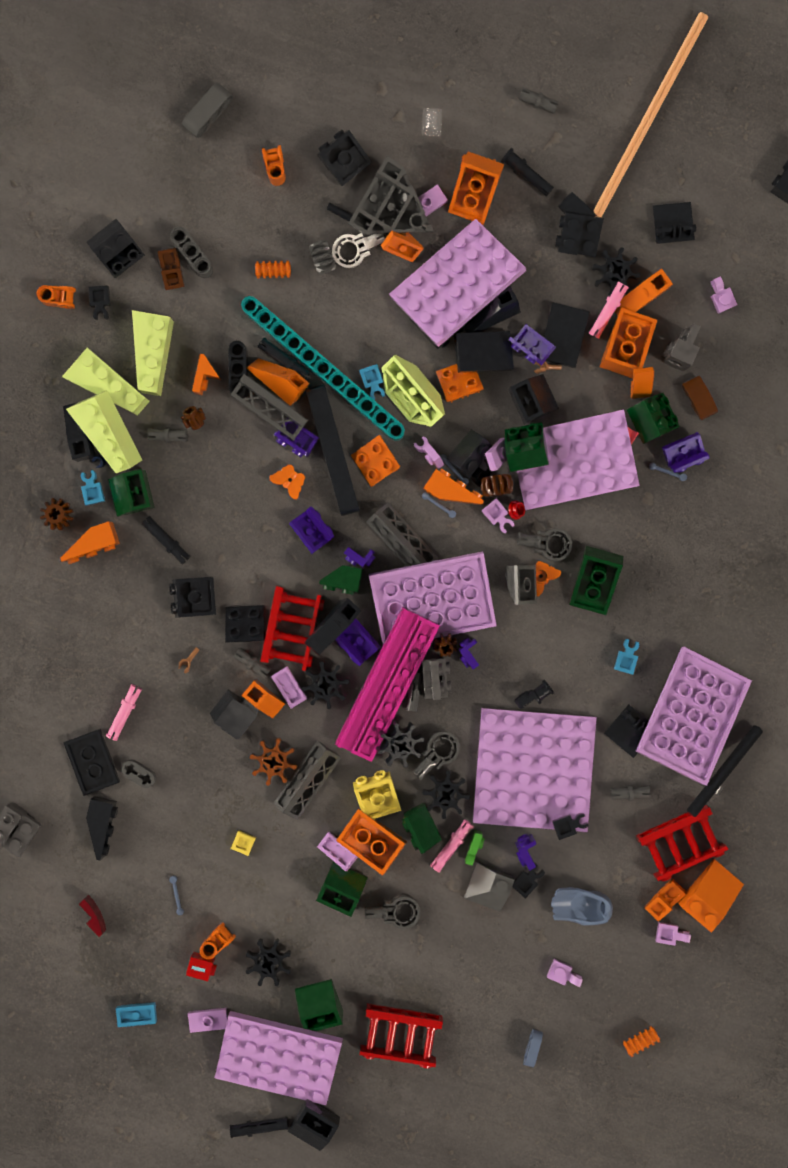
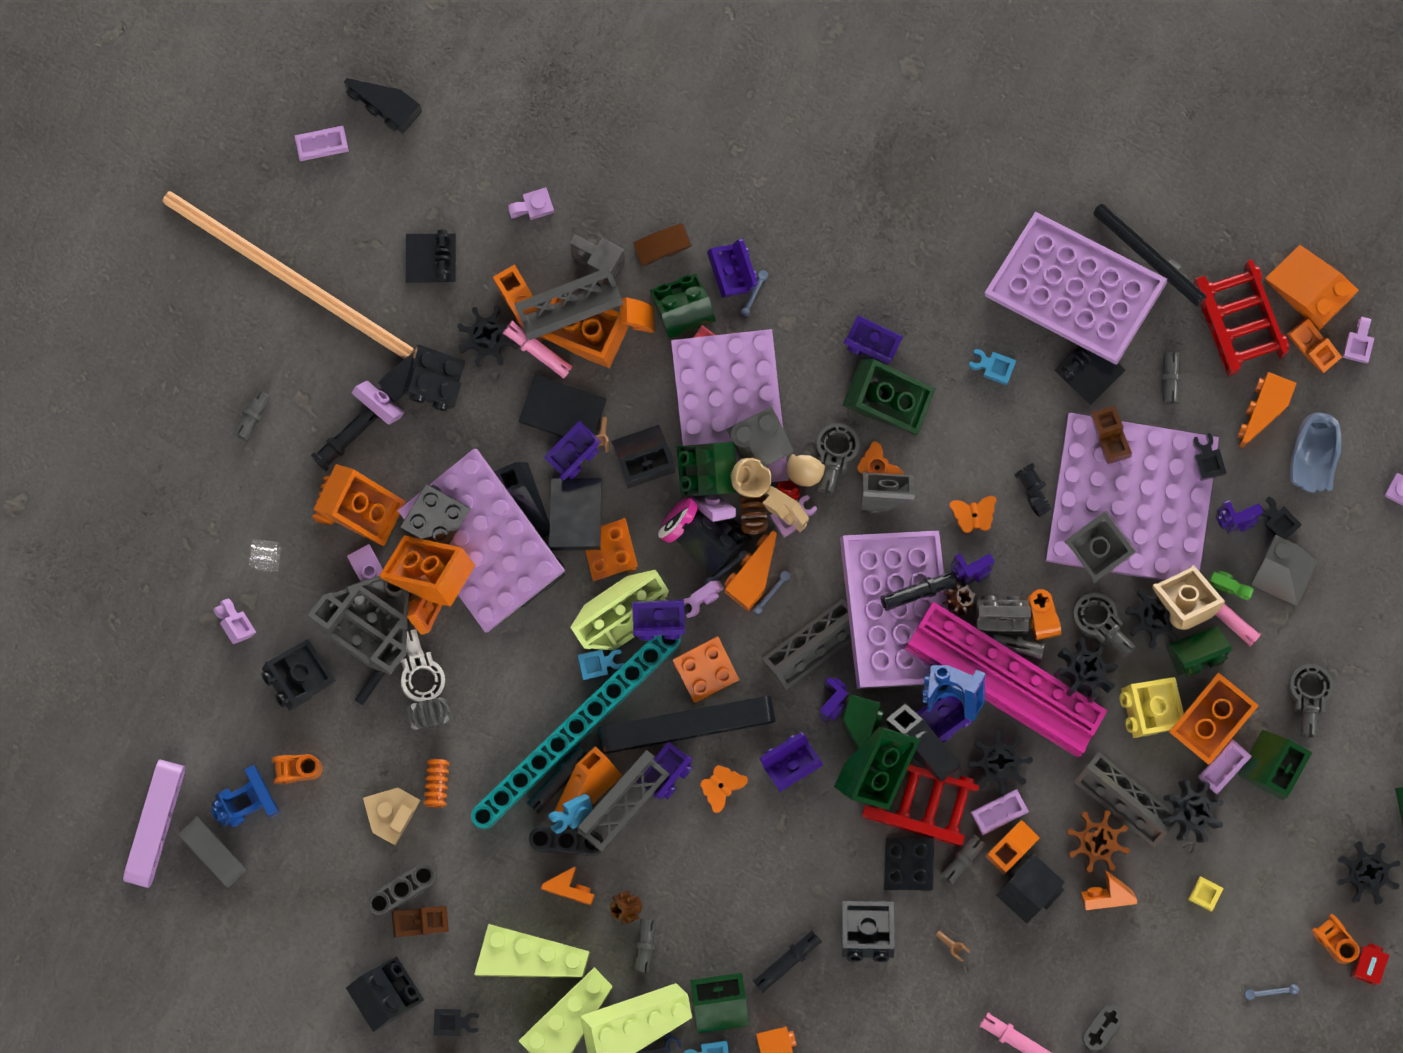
camera: 80 degrees left, 10 degrees down
(224, 64) = (154, 823): none -> lavender beam
(234, 775) = (1114, 895): none -> orange slope
(240, 116) = (225, 810): none -> blue tile
(248, 238) = (390, 813): none -> tan plate
(256, 371) = (573, 815): none -> dark azure plate
(307, 593) = (877, 768): none -> dark green slope
(307, 834) = (1186, 815): none -> black gear
(375, 656) = (959, 684): none -> blue tile
(377, 106) = (234, 624): none -> lavender plate
(407, 420) = (658, 619): none -> dark purple bracket
(429, 243) = (428, 569): none -> orange slope
(435, 710) = (1043, 620): none -> orange piece
(449, 618) = (927, 587): none -> black pin
(459, 817) = (1188, 598): none -> tan slope
(470, 244) = (435, 516): none -> hinge
(488, 429) = (680, 514): none -> dark pink tile
(493, 749) = (1101, 546): none -> dark grey slope
(500, 507) = (786, 508): none -> tan plate
(515, 658) = (983, 511): none -> orange animal
(521, 479) = (750, 477): none -> tan hair
(532, 521) = (804, 470): none -> tan hair
(552, 485) = (761, 437): none -> dark grey slope
(556, 194) = (378, 402): none -> lavender plate
(581, 750) = (1111, 434): none -> reddish brown slope
(617, 869) = (1272, 400): none -> orange slope
(638, 564) = (873, 340): none -> dark purple bracket
(643, 331) = (571, 307): none -> dark grey fence
(756, 129) = (321, 143): none -> lavender plate

